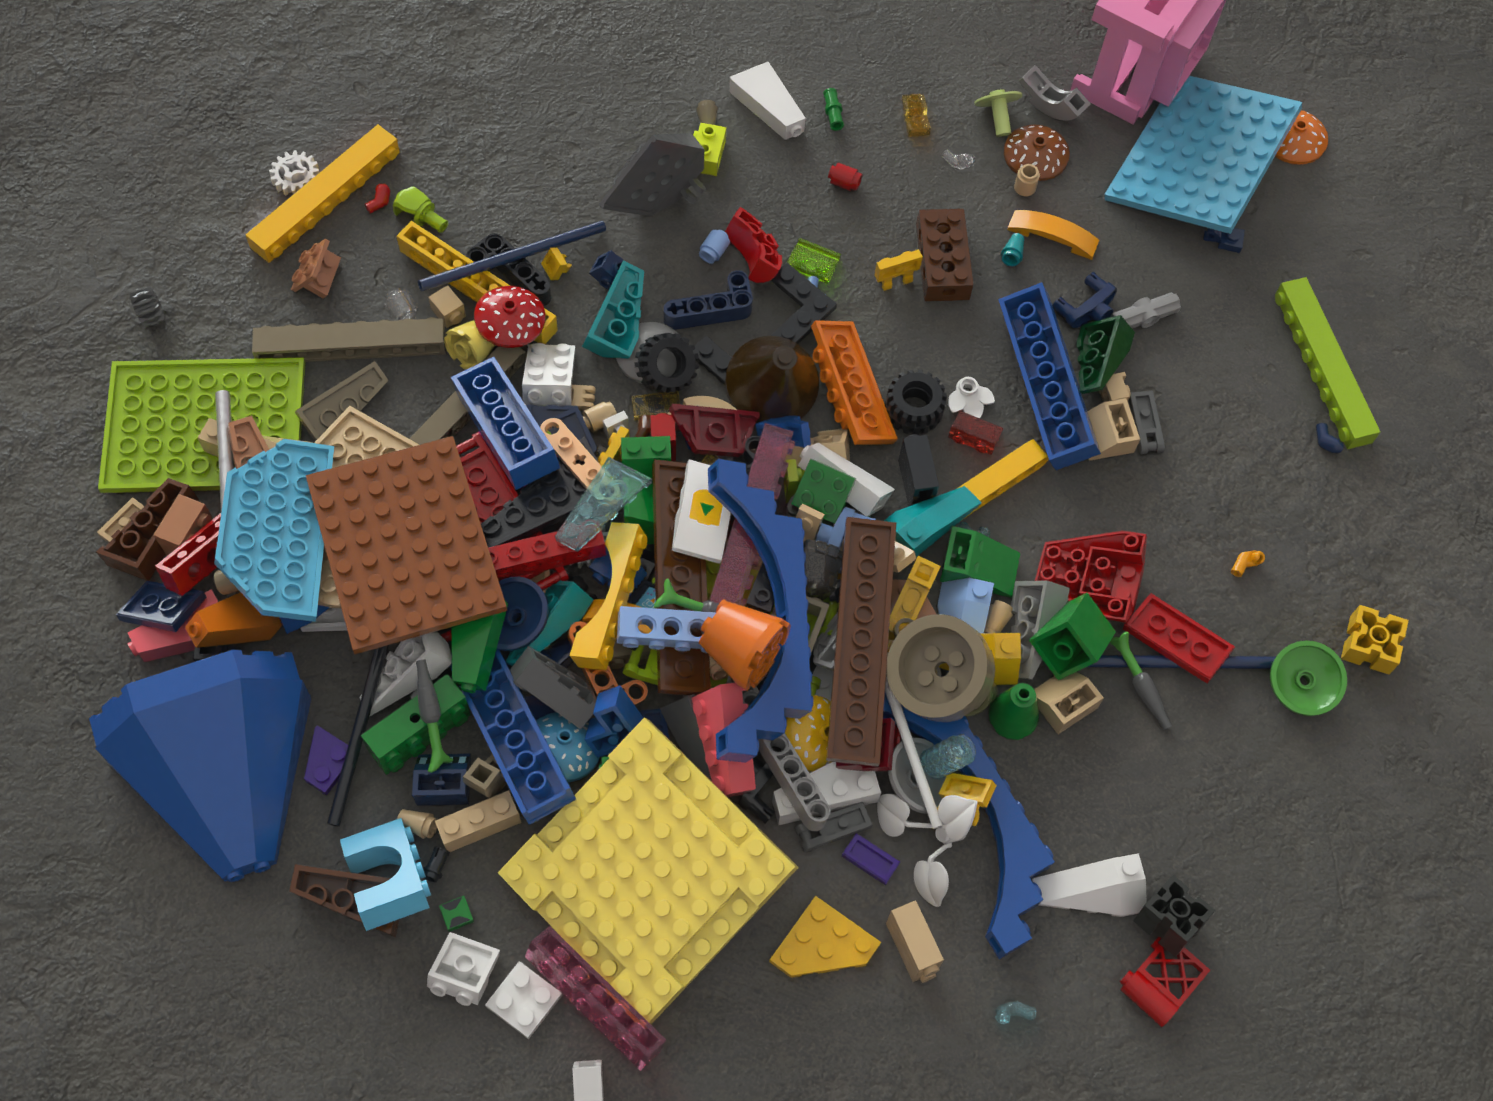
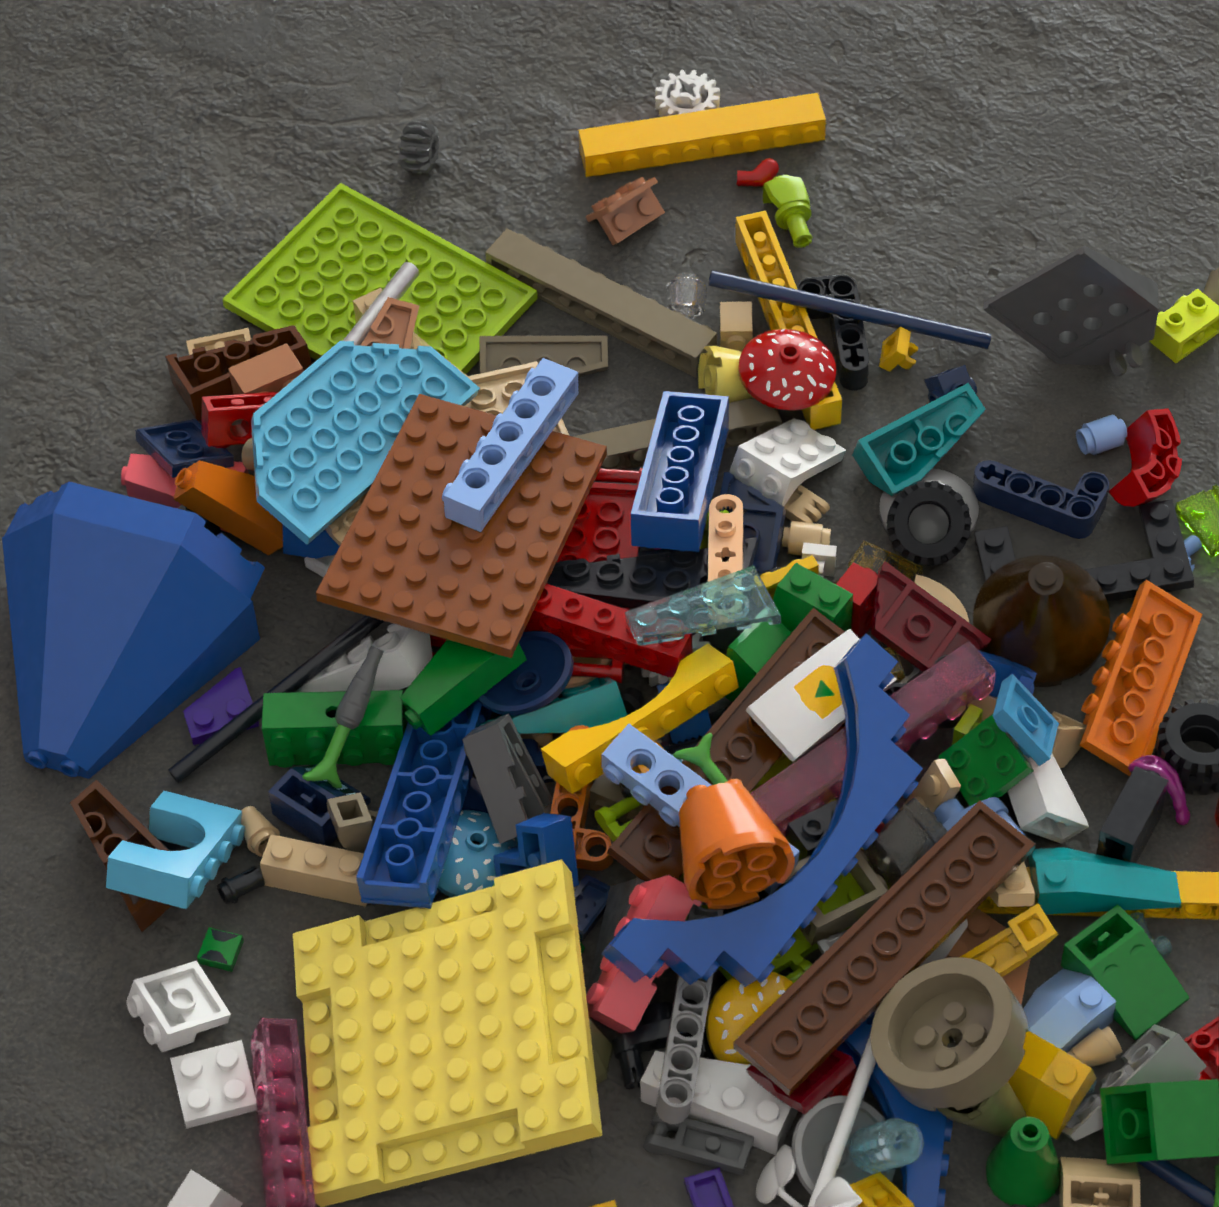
camera: 45 degrees right, 10 degrees down
(409, 529) = (510, 444): none -> light blue brick
(830, 451) = (1025, 720): none -> dark azure plate
(904, 430) = (1174, 786): none -> magenta piece

